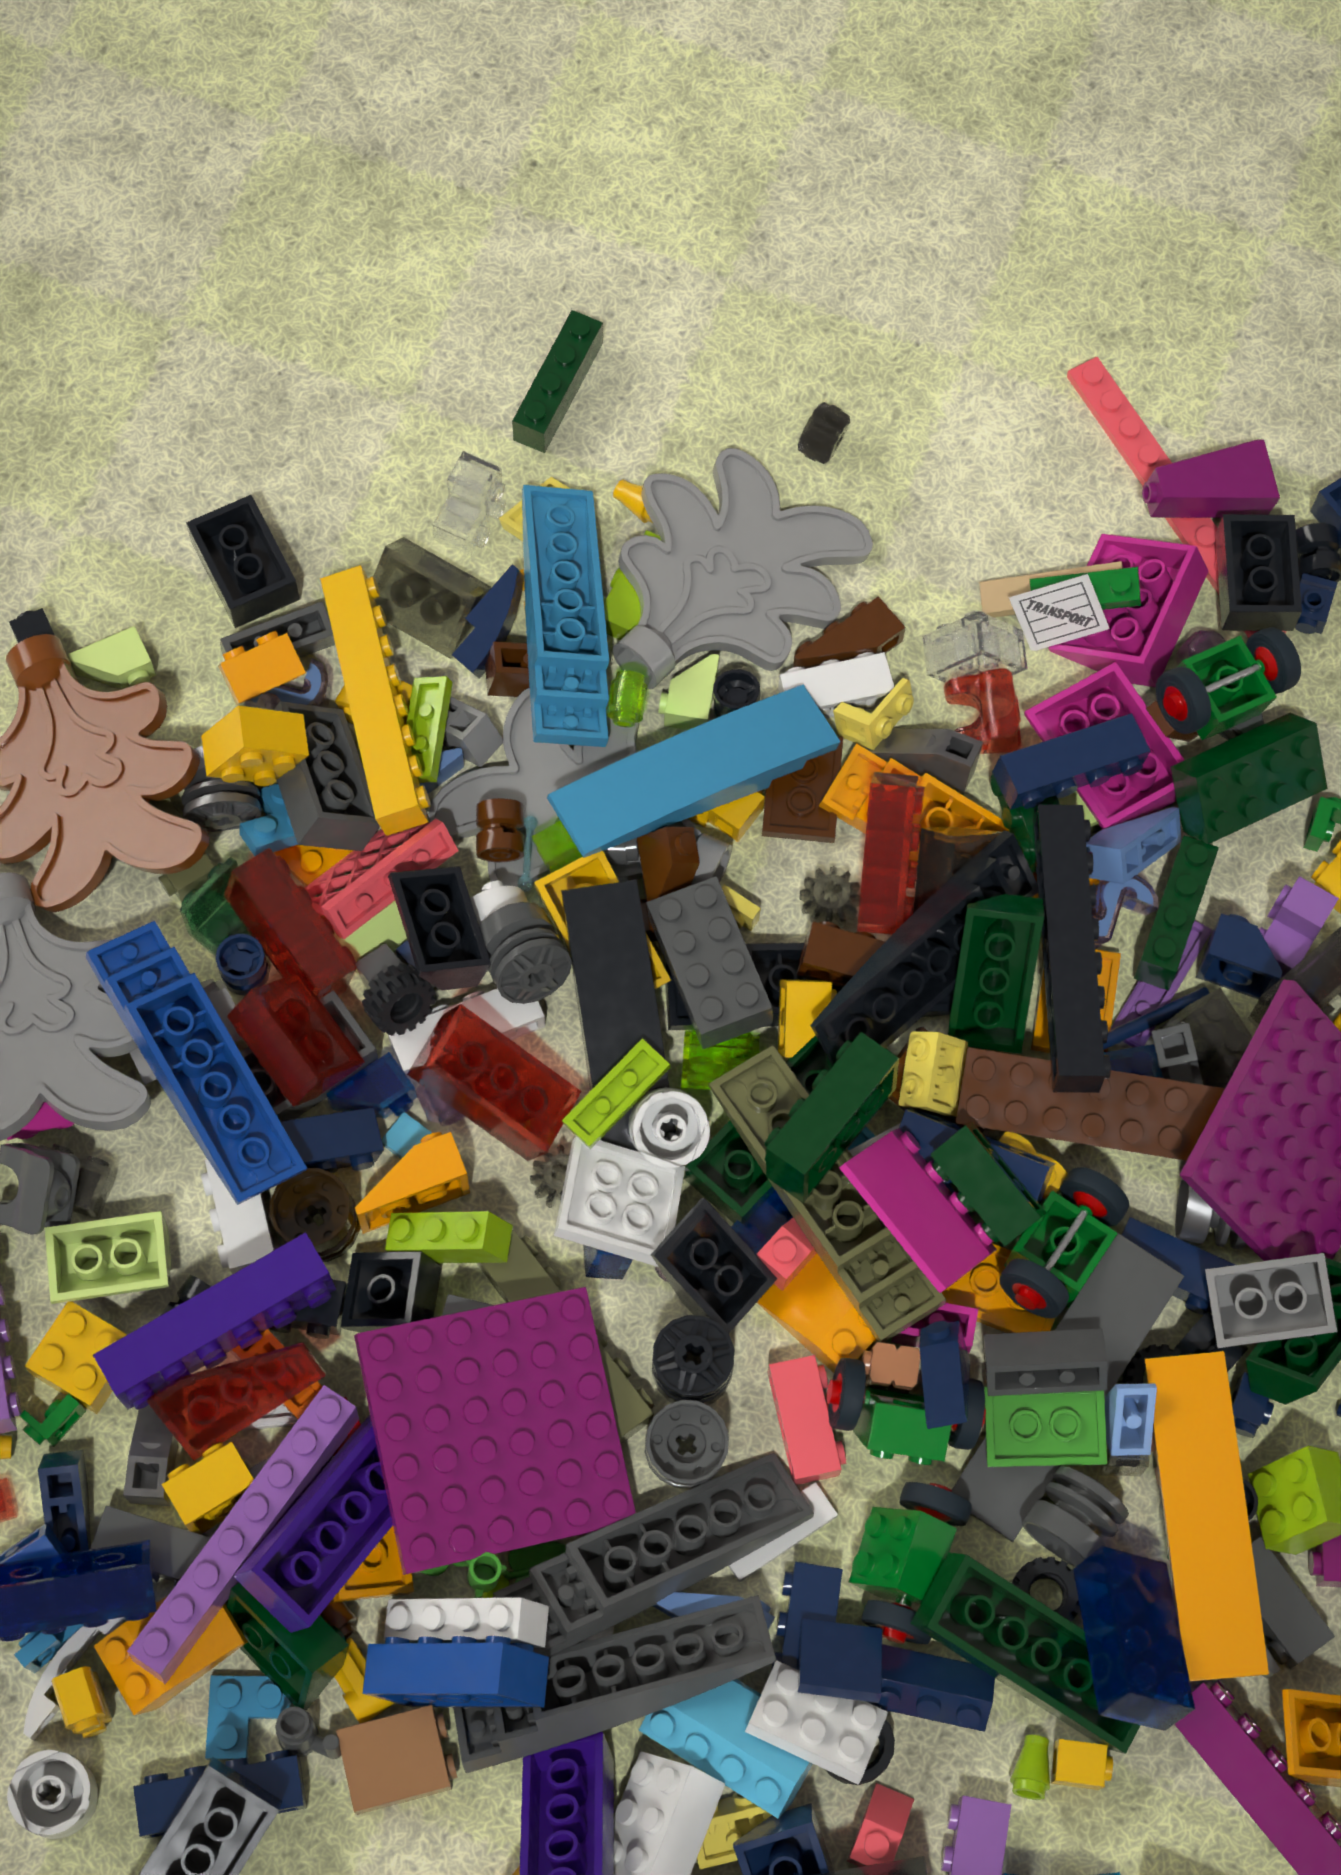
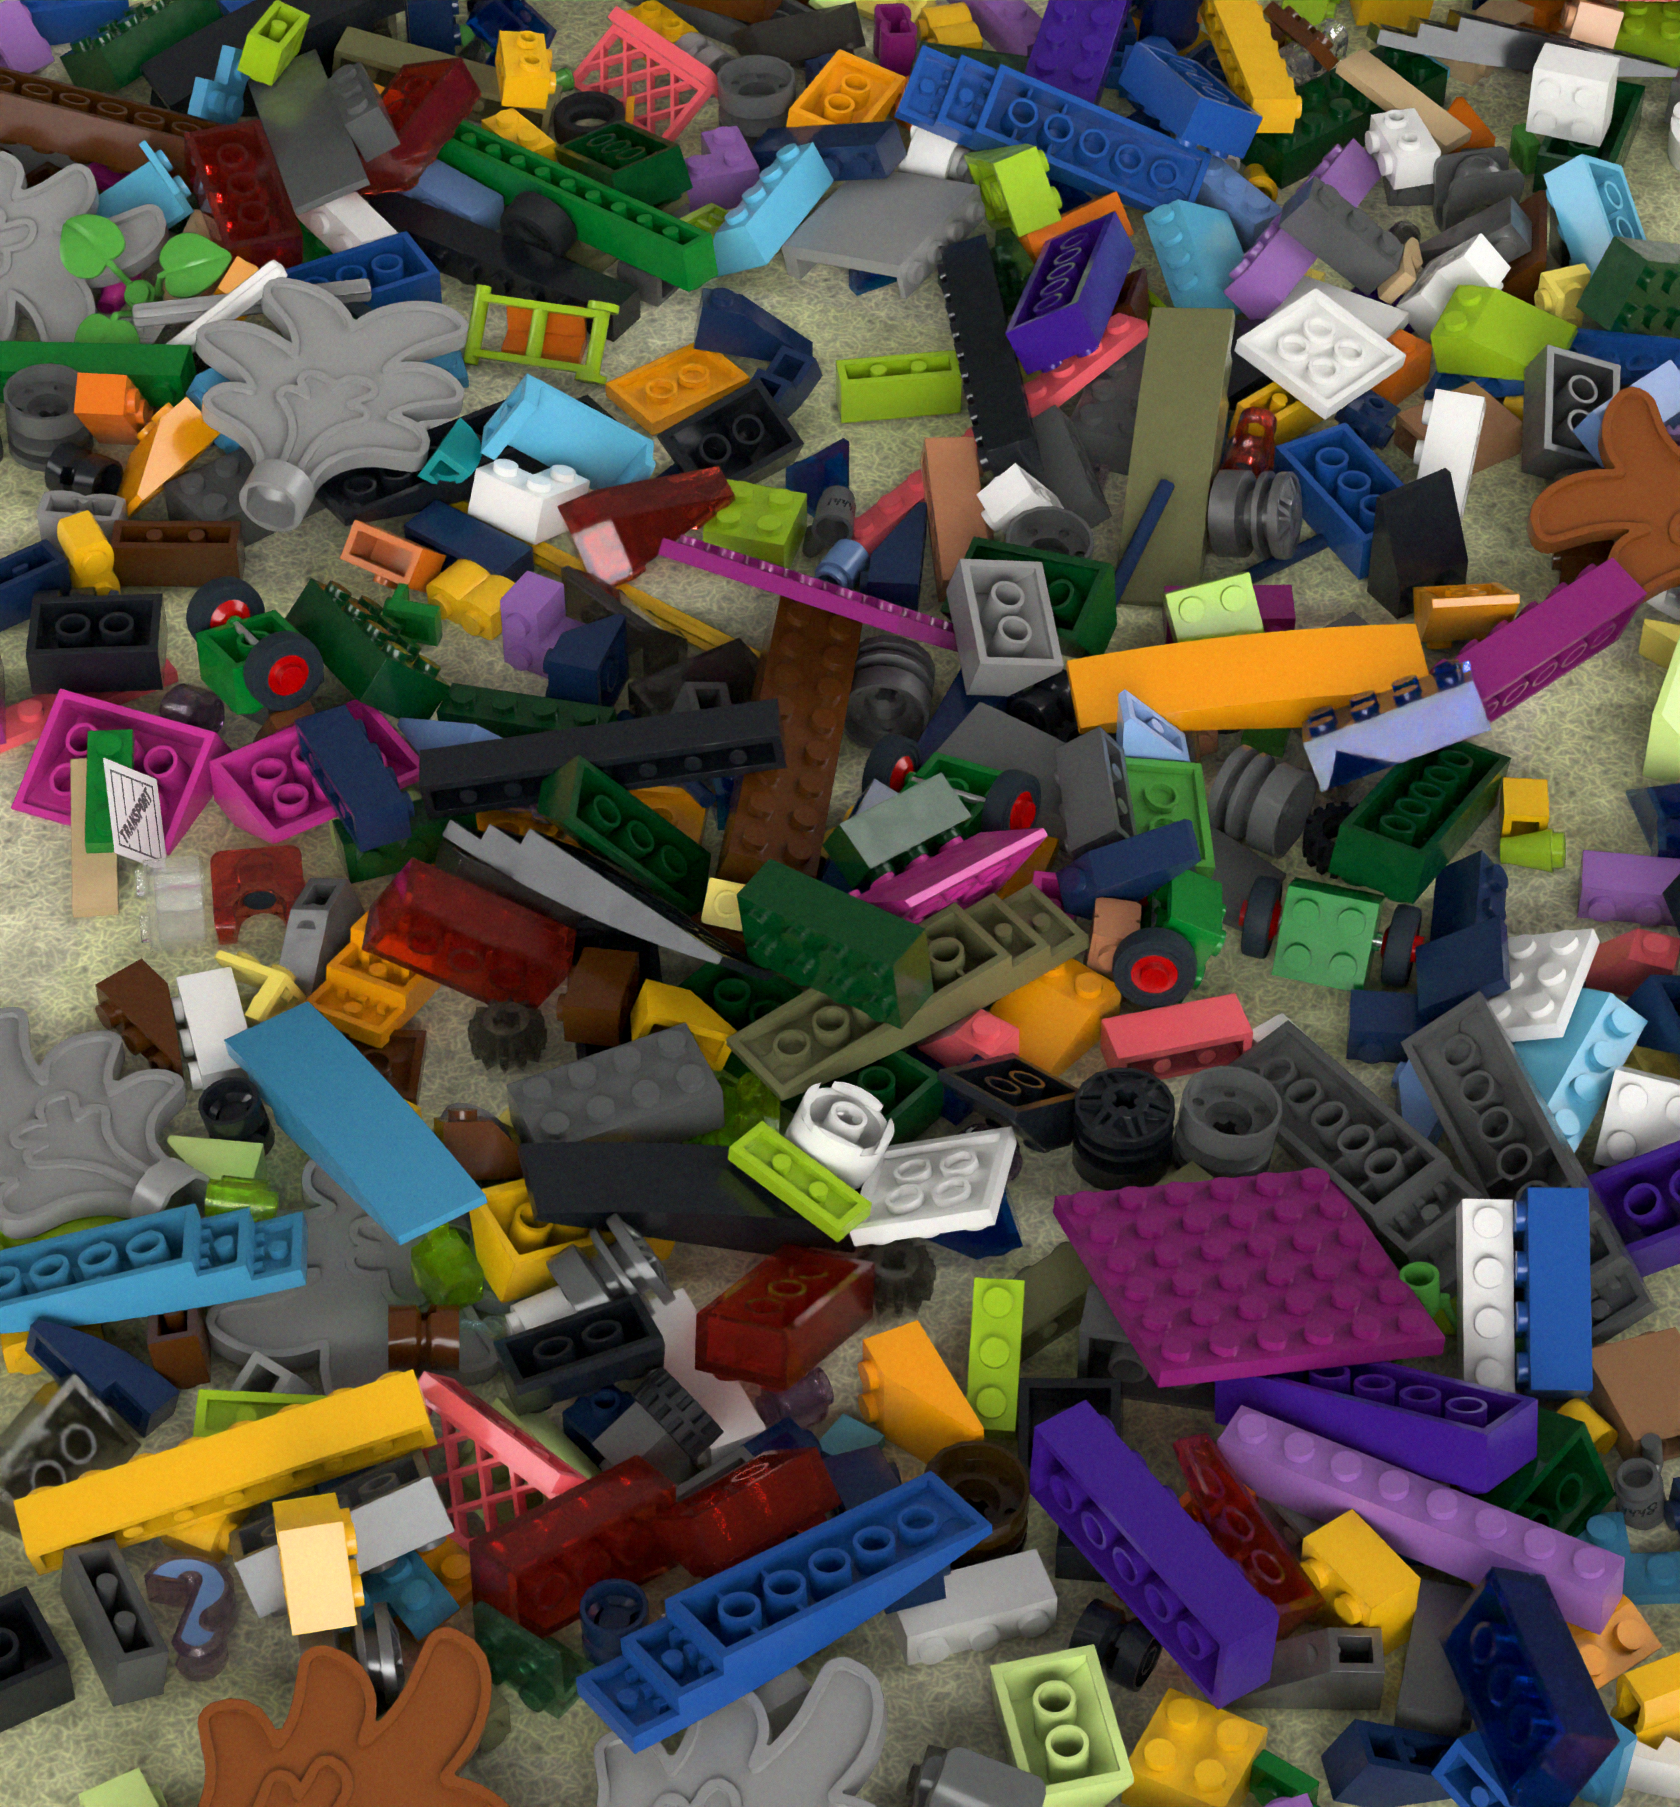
camera: 90 degrees left, 25 degrees down
(260, 668) = (173, 1604): light orange brick -> none

